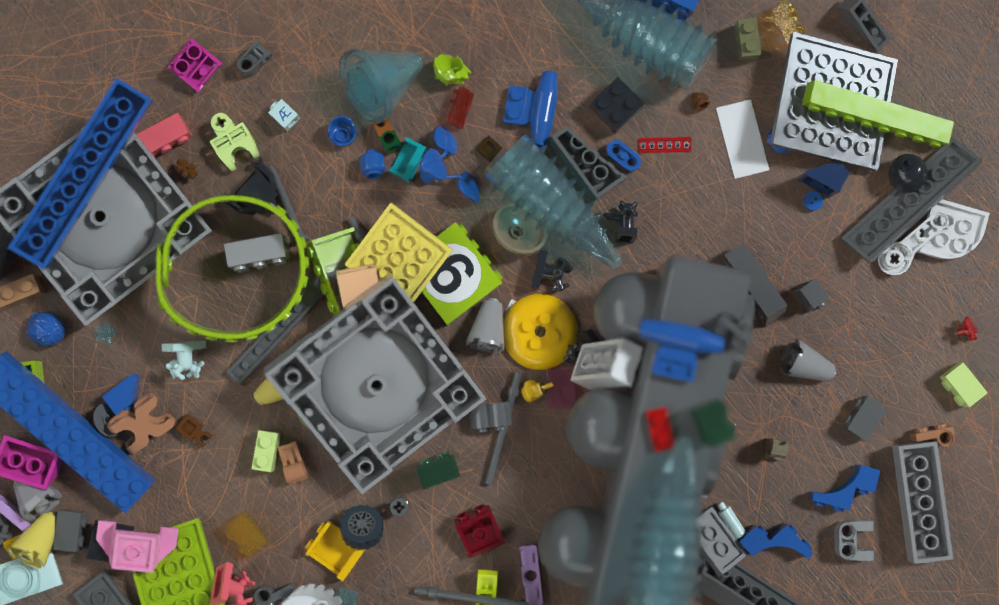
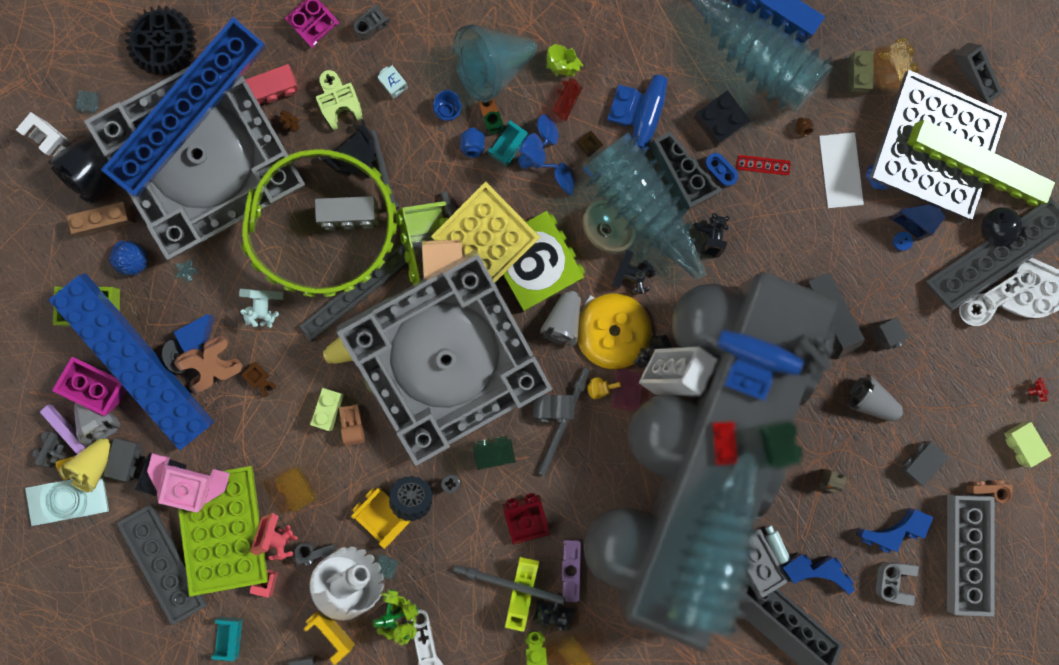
camera: 10 degrees right, 0 degrees up
(40, 102) = (156, 35): none -> black gear

